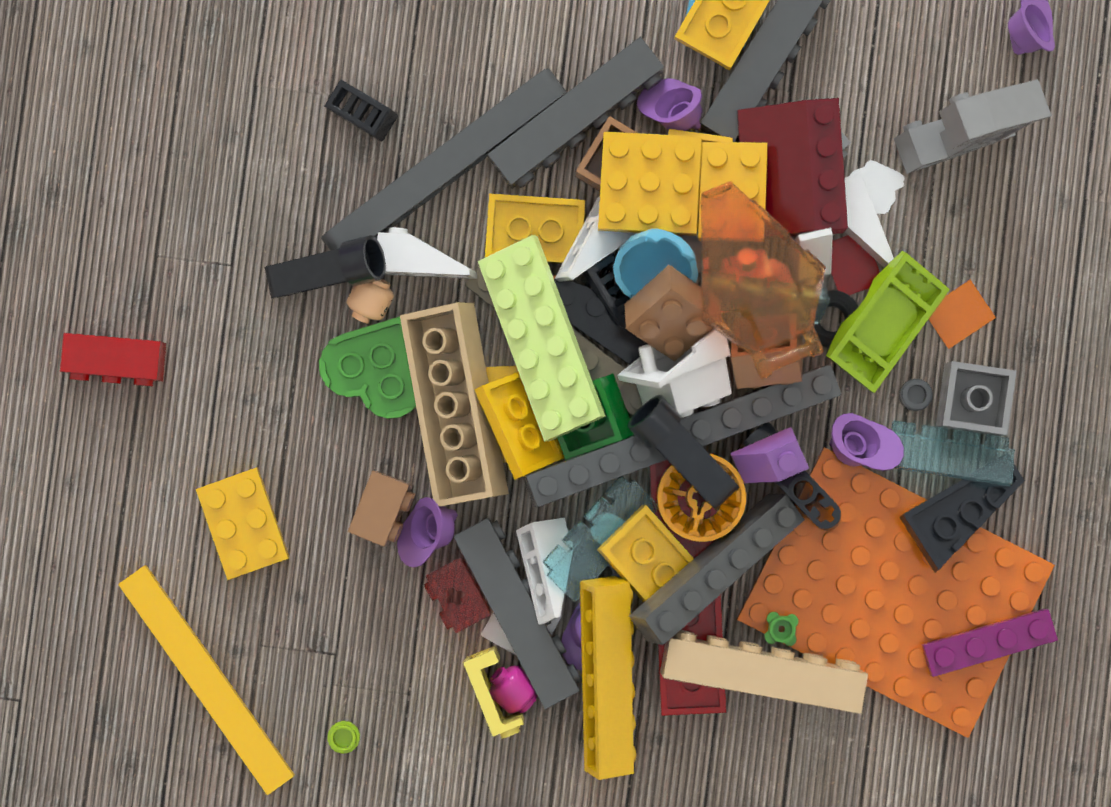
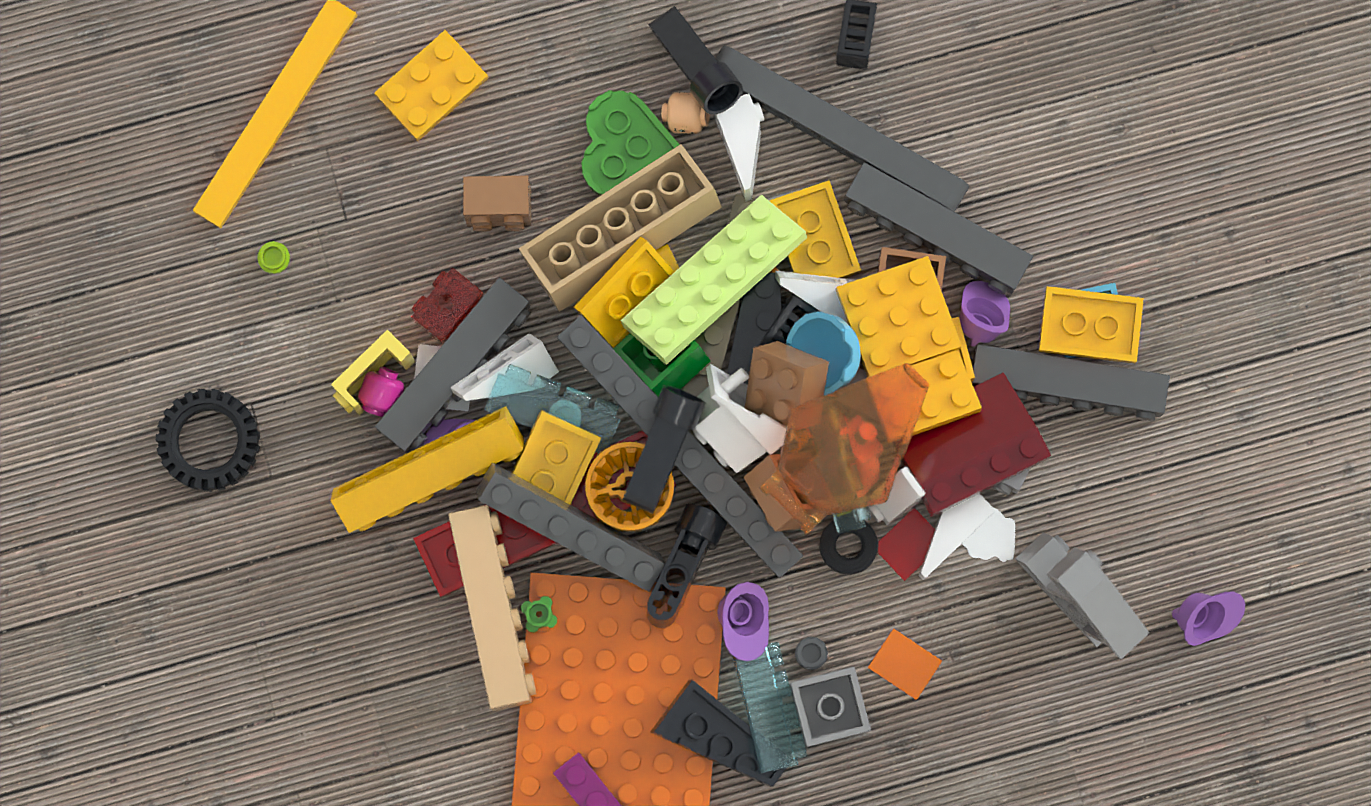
camera: 65 degrees right, 5 degrees down
(424, 531) = (493, 251): medium lavender piece -> none
(770, 458) = (692, 532): medium lavender slope -> none
(886, 321) = (866, 593): lime slope -> none

